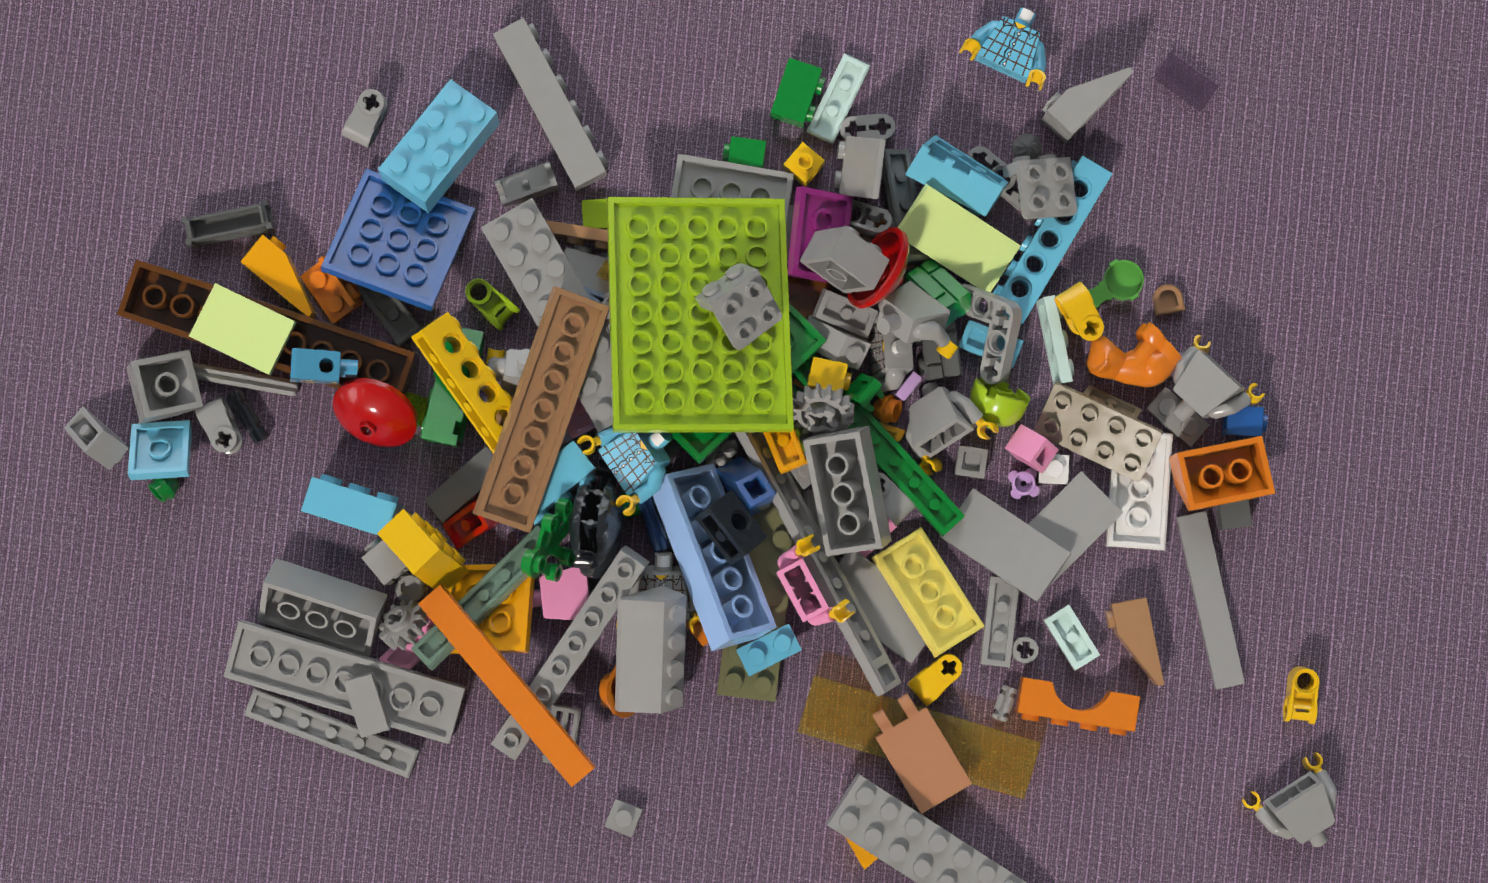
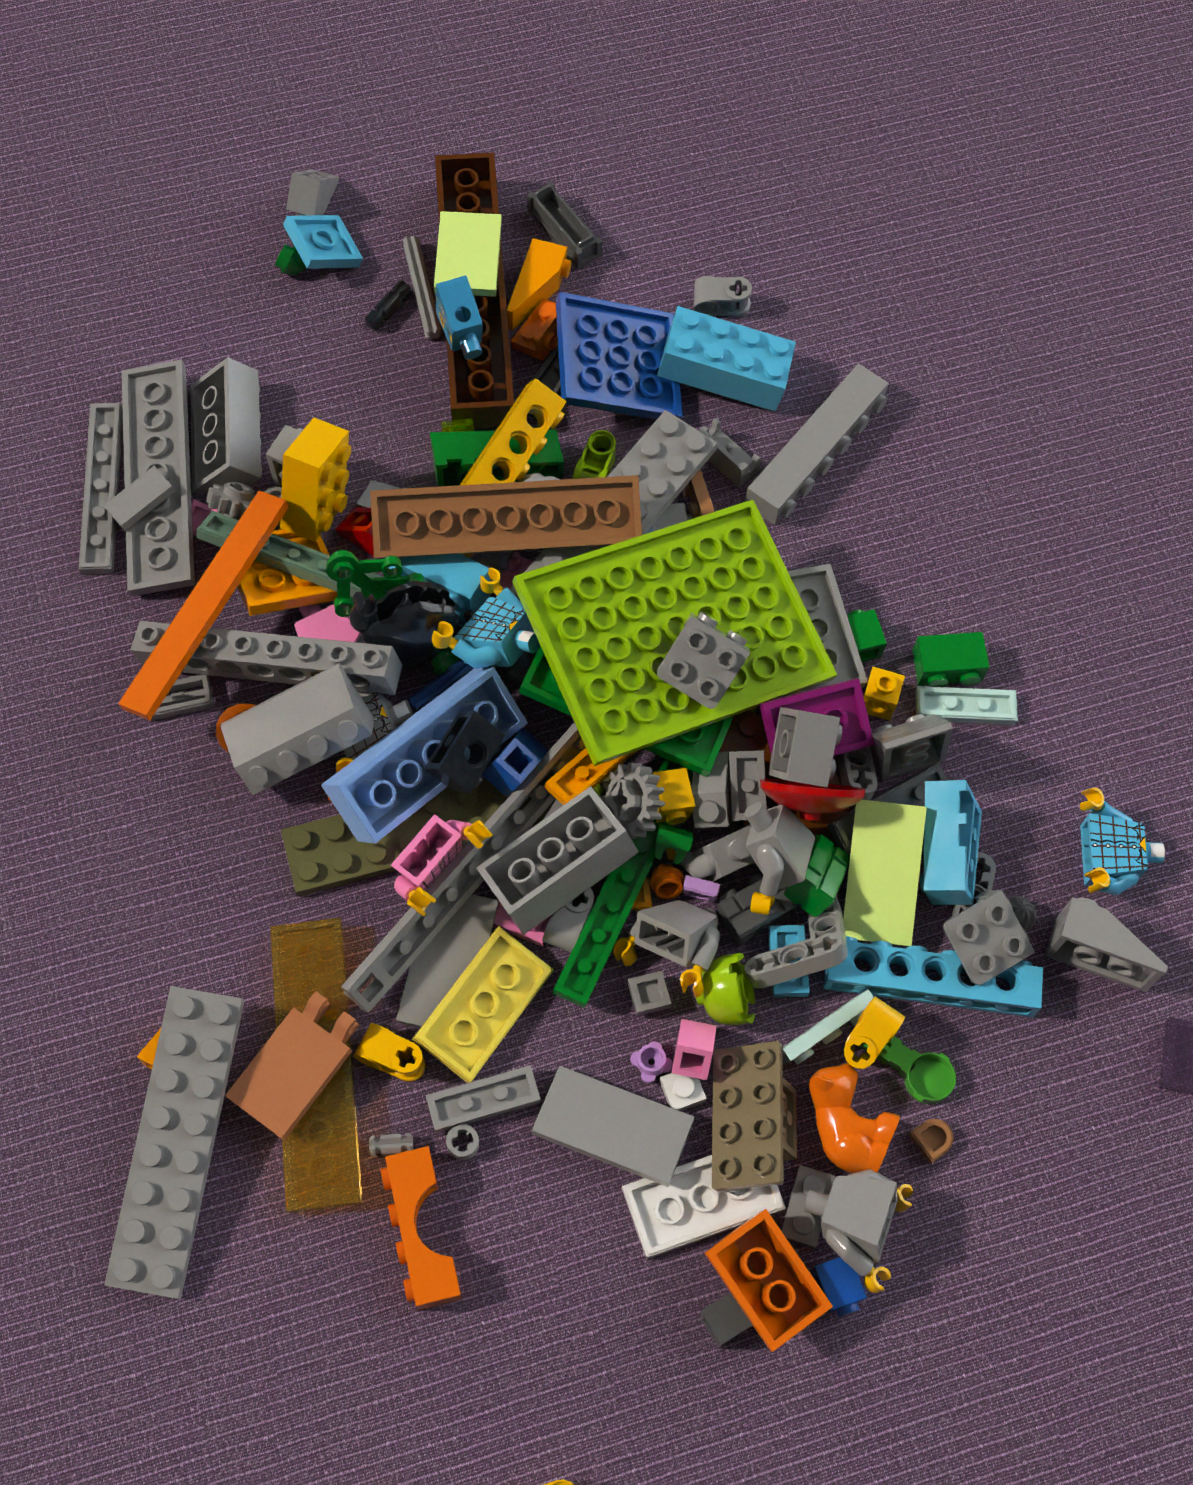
camera: 65 degrees right, 20 degrees down
(164, 386) = (384, 221): light grey slope -> none
(217, 422) = (367, 285): light grey piece -> none
(350, 505) = (339, 399): medium azure brick -> none
(375, 412) = (438, 394): red dish -> none
(623, 817) = (110, 790): light grey plate -> none
(723, 453) = (541, 733): light grey plant -> none
(768, 649) = (349, 858): medium azure plate -> none
(868, 121) = (962, 747): light grey beam -> none
(1007, 546) = (572, 1069): light grey tile -> none
(1071, 637) = (498, 1189): light aqua plate -> none
(1135, 631) = (537, 1259): medium nougat slope -> none
(1210, 600) = (610, 1340): light grey tile -> none

